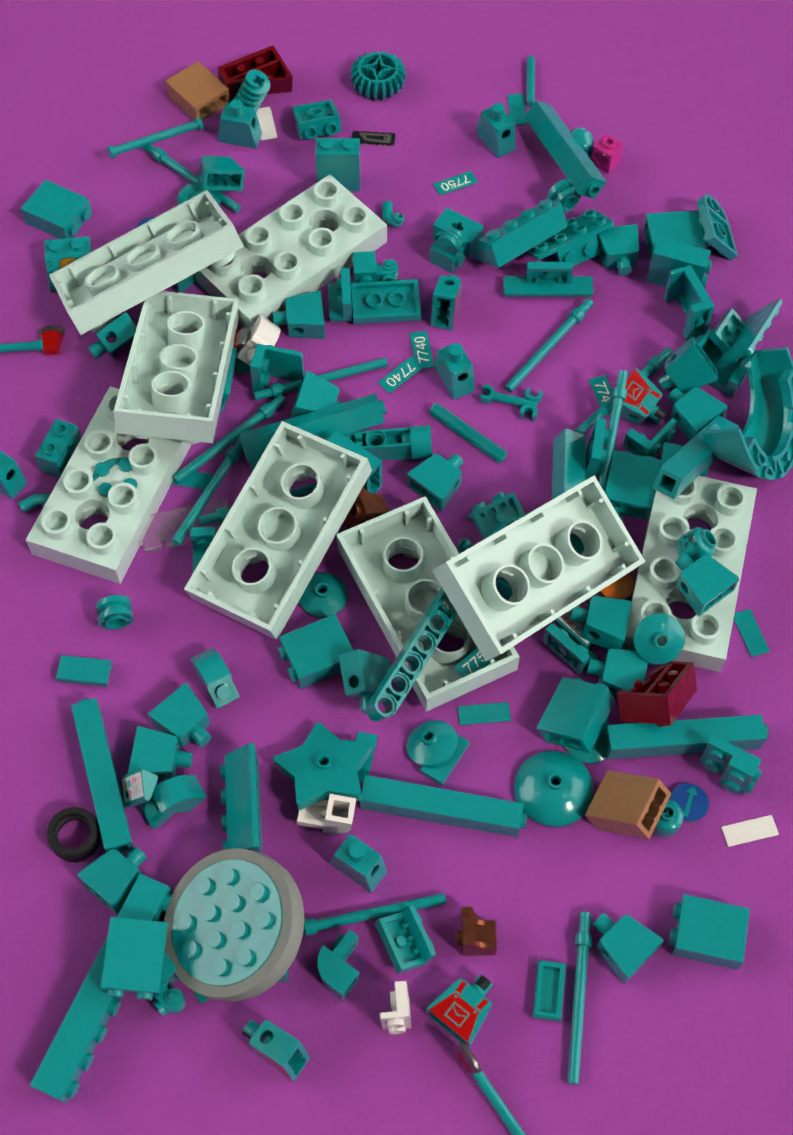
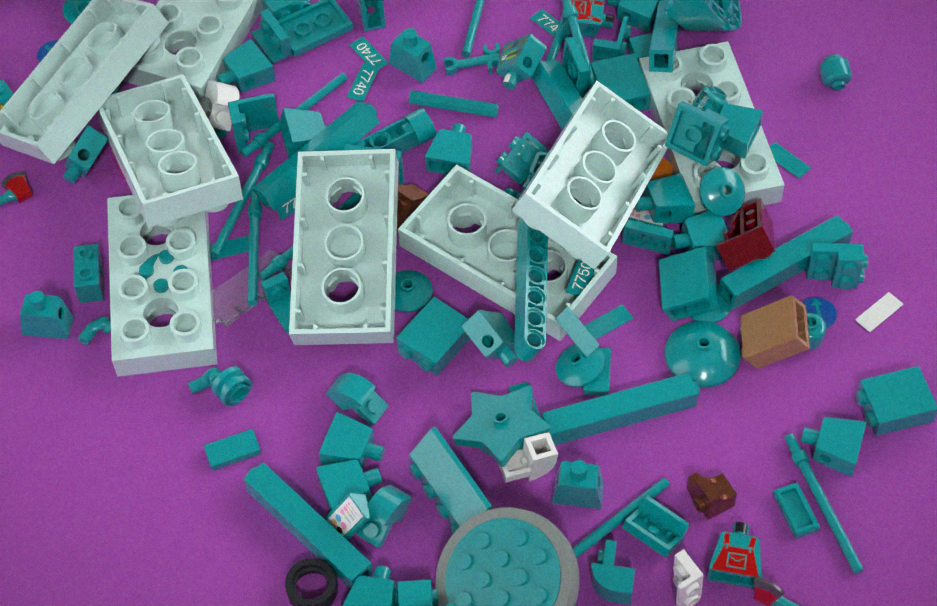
camera: 25 degrees left, 5 degrees down
(96, 595) = (204, 381): none -> teal arm
(441, 712) = (577, 331): none -> teal sticker
(548, 419) = (520, 60): none -> teal torso
(661, 572) = (697, 133): none -> teal plate

